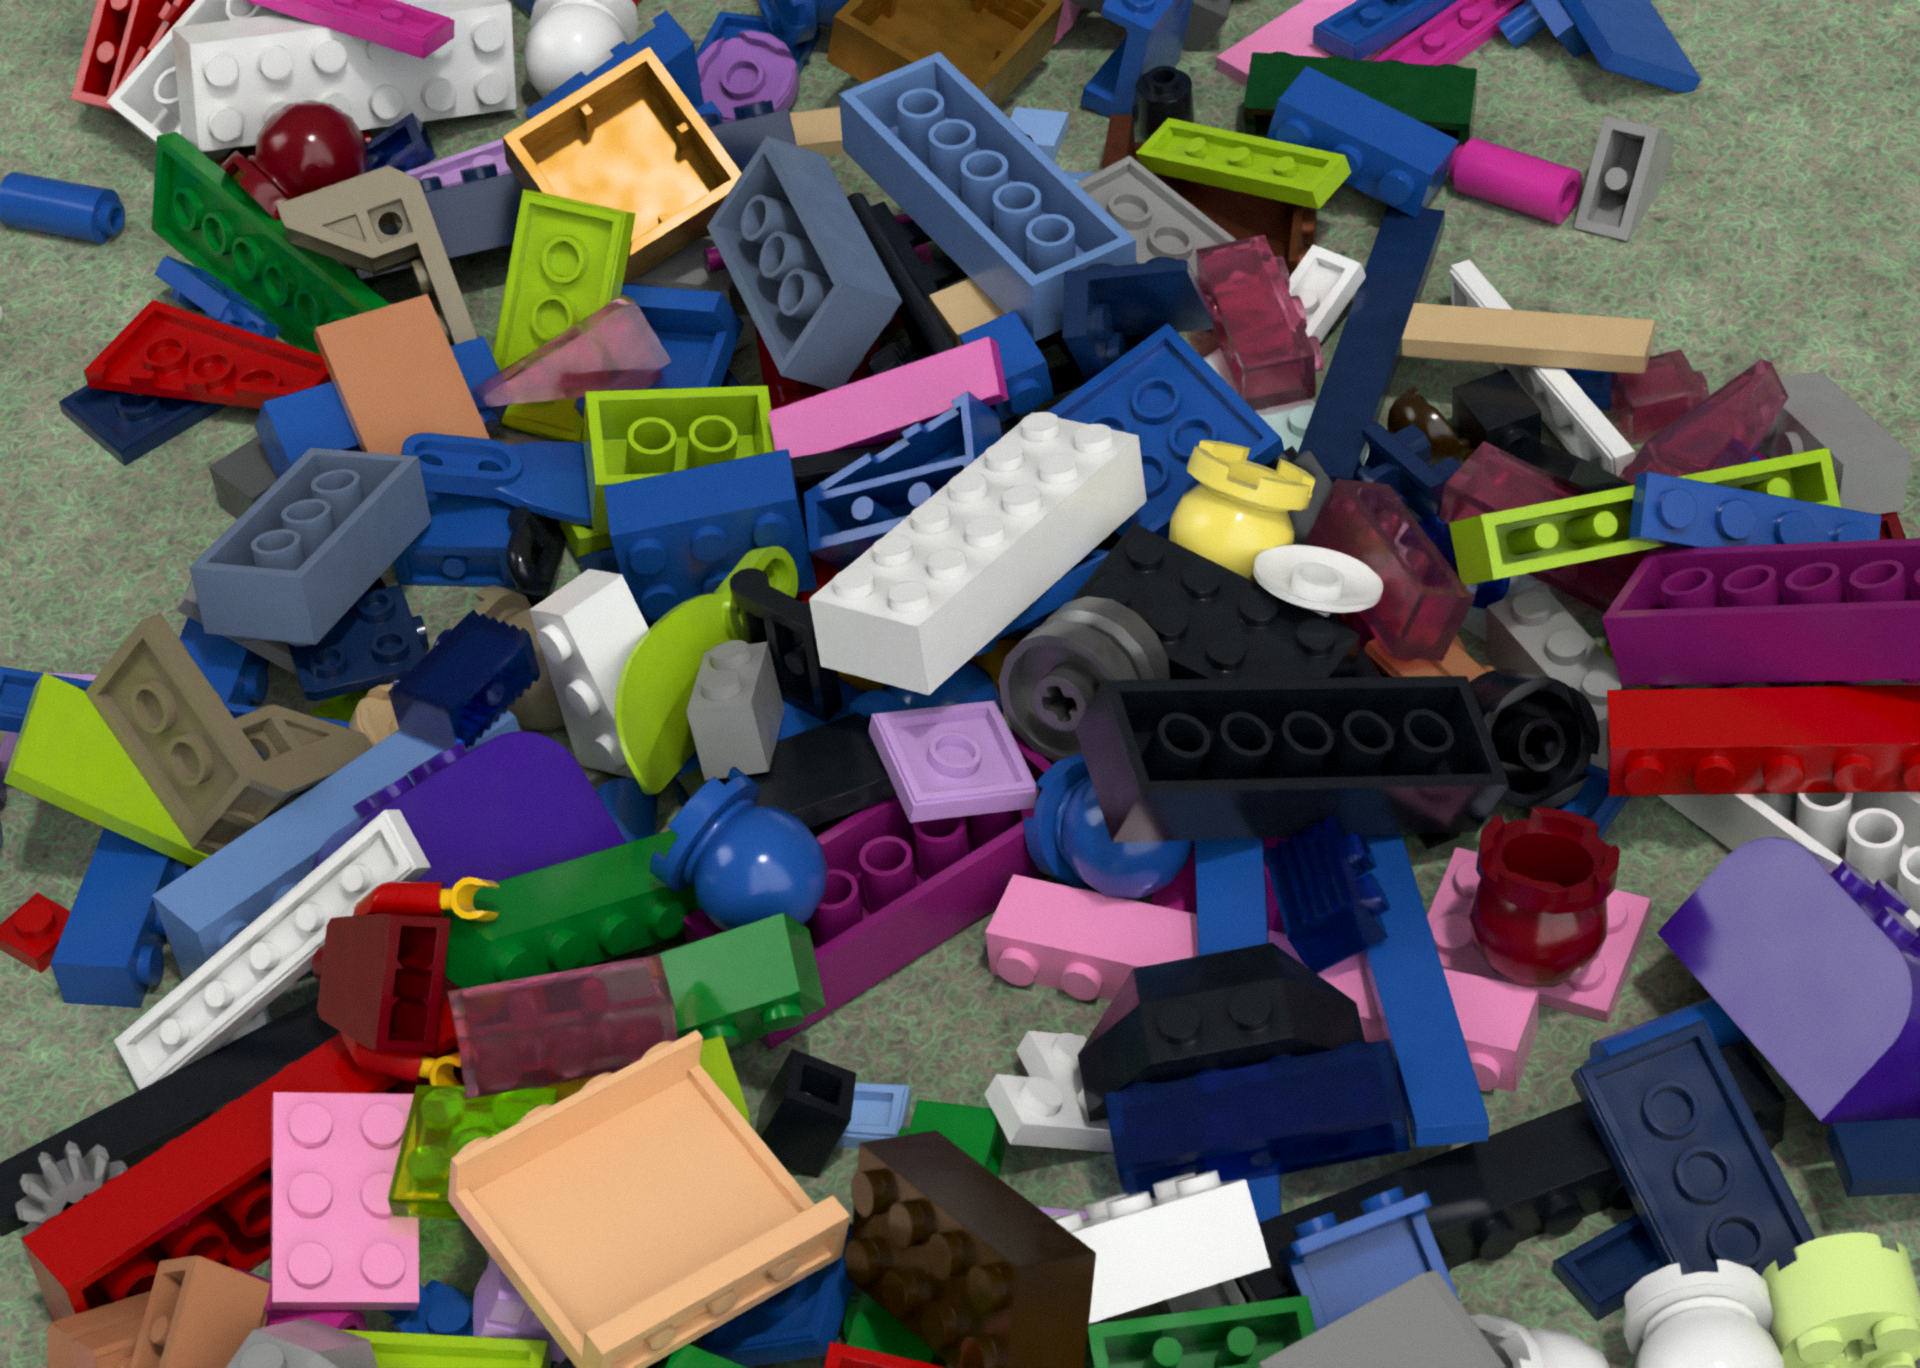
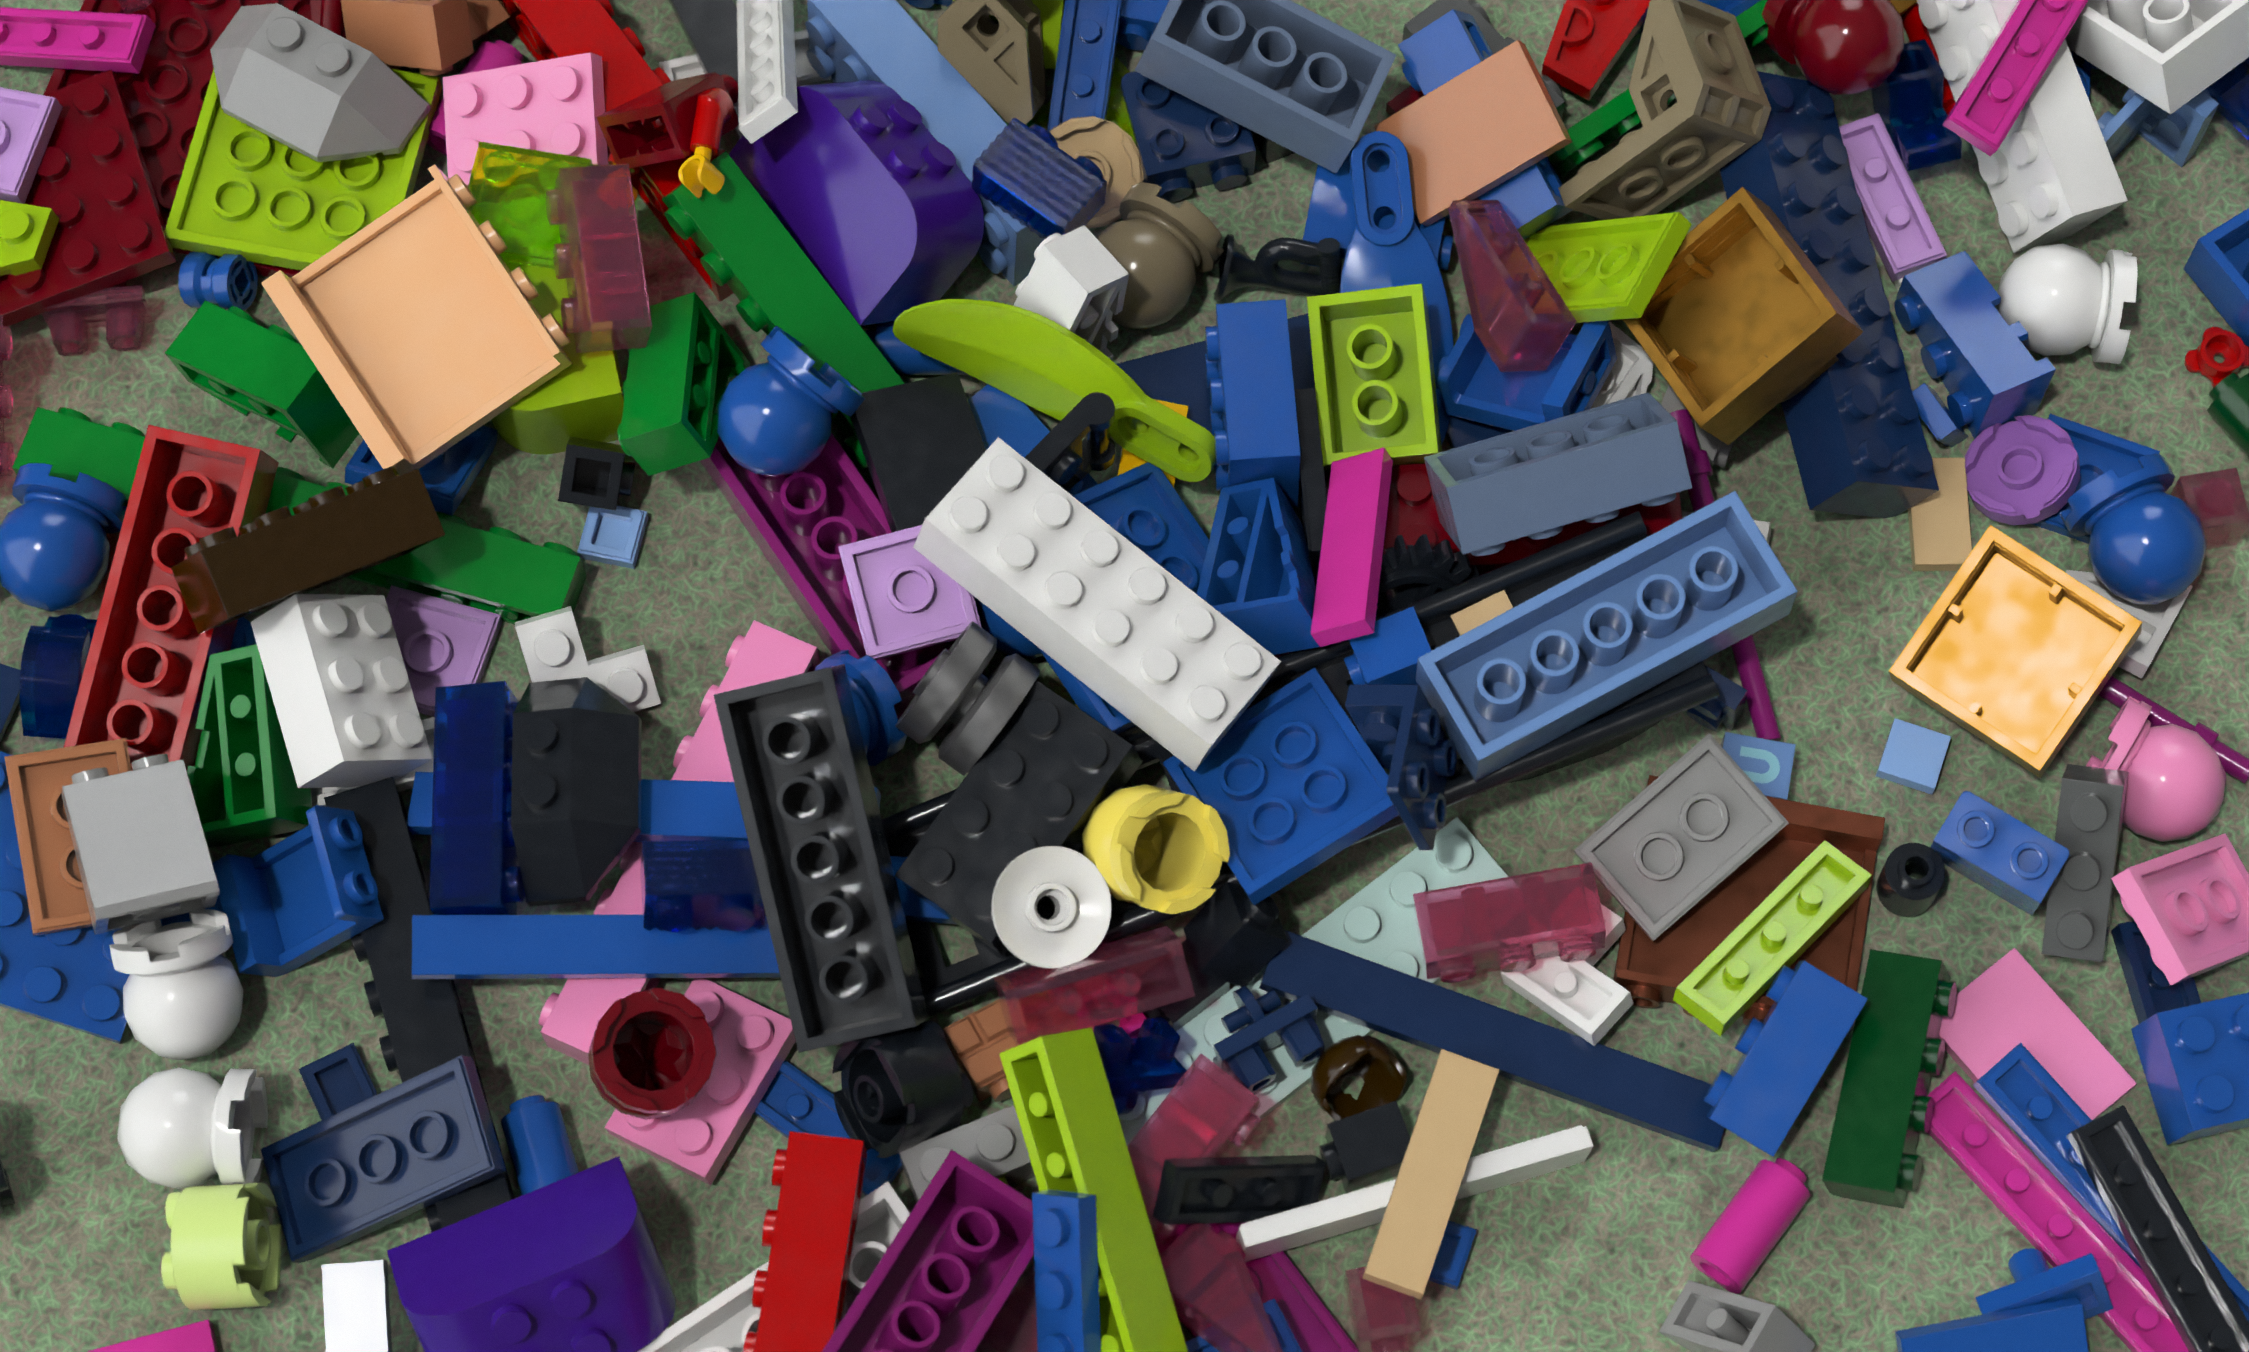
camera: 90 degrees right, 25 degrees up
(735, 709) = (991, 403): light grey brick -> none

